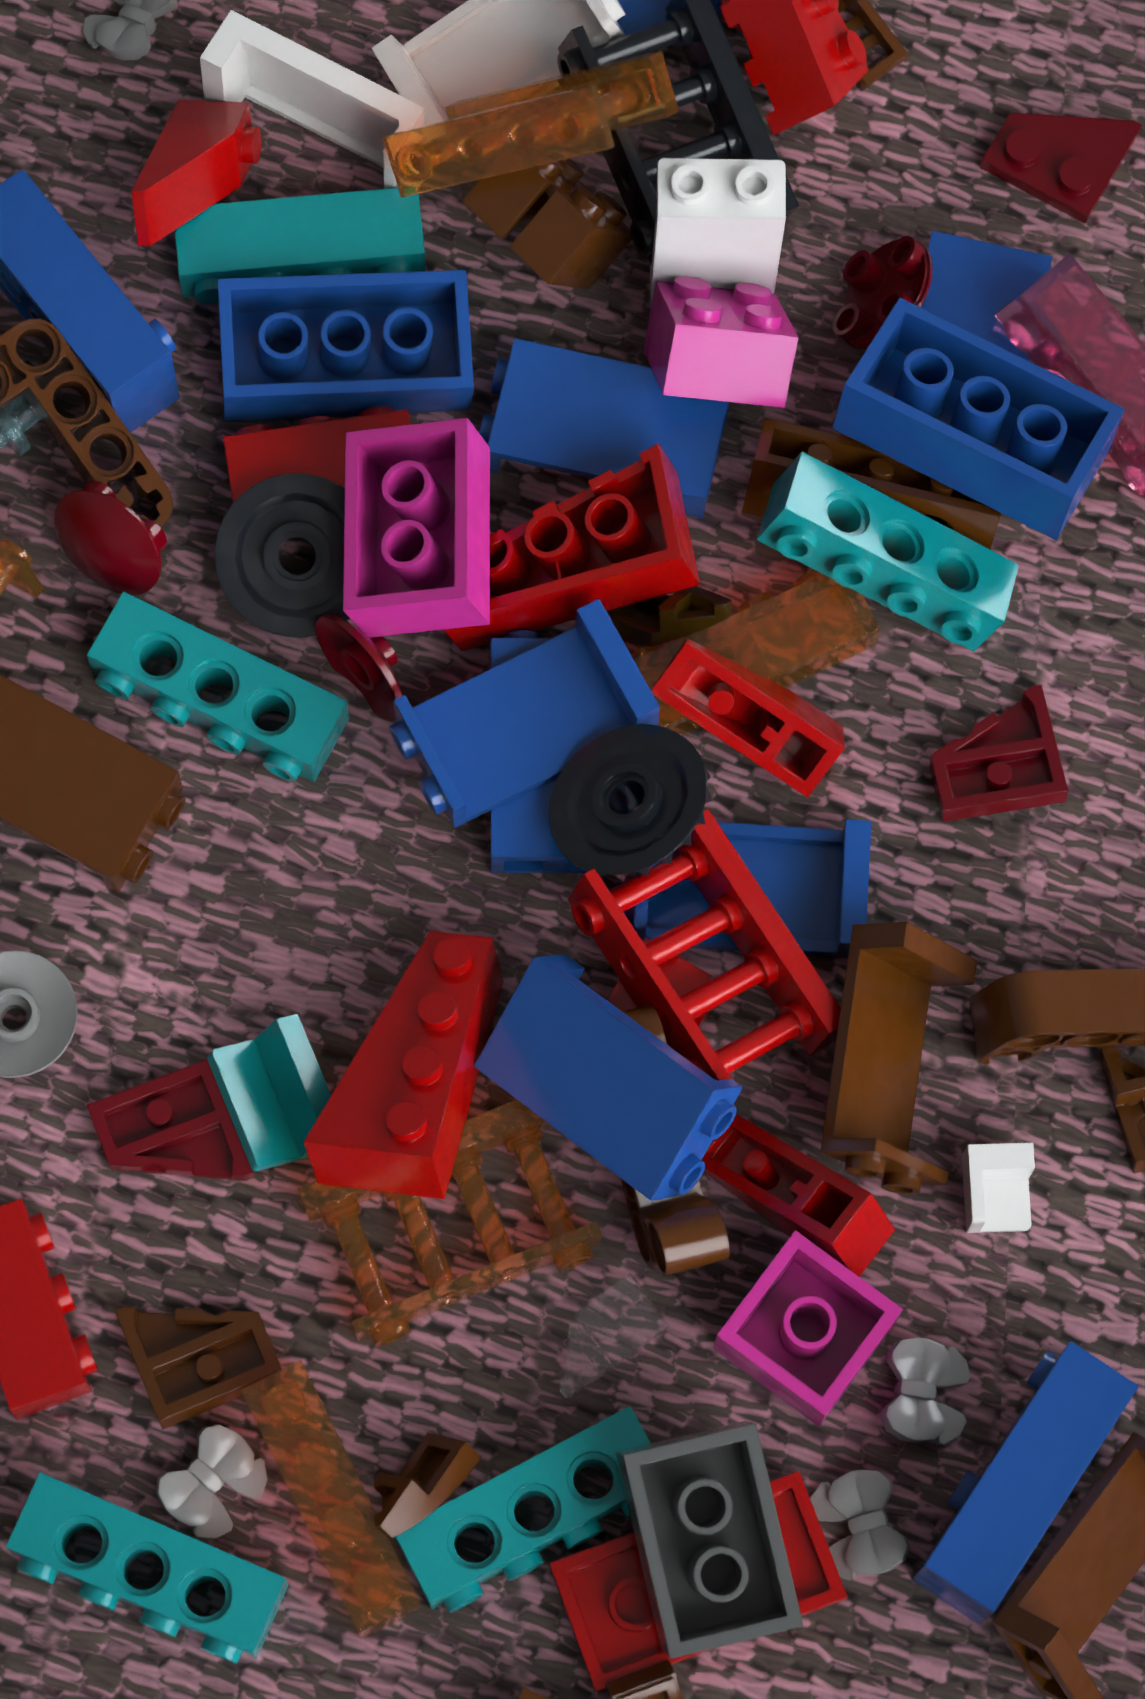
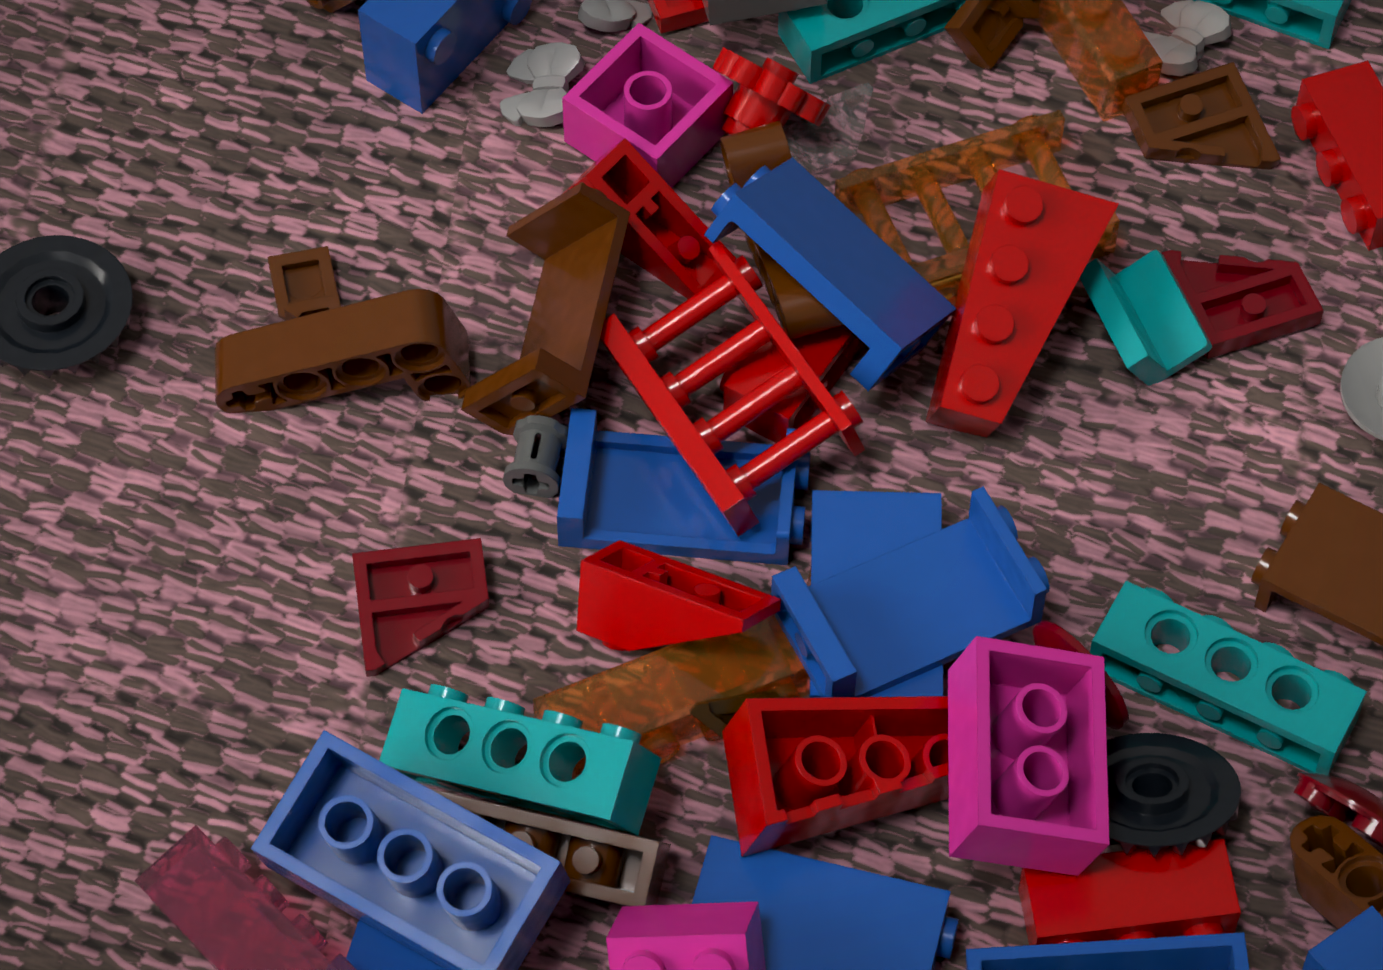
camera: 175 degrees left, 15 degrees down
(610, 779) = (830, 481): black gear -> none
(676, 1342) = (765, 94): none -> red plant
(898, 894) = (536, 456): none -> dark grey bush
(997, 1187) = (461, 237): white panel -> none

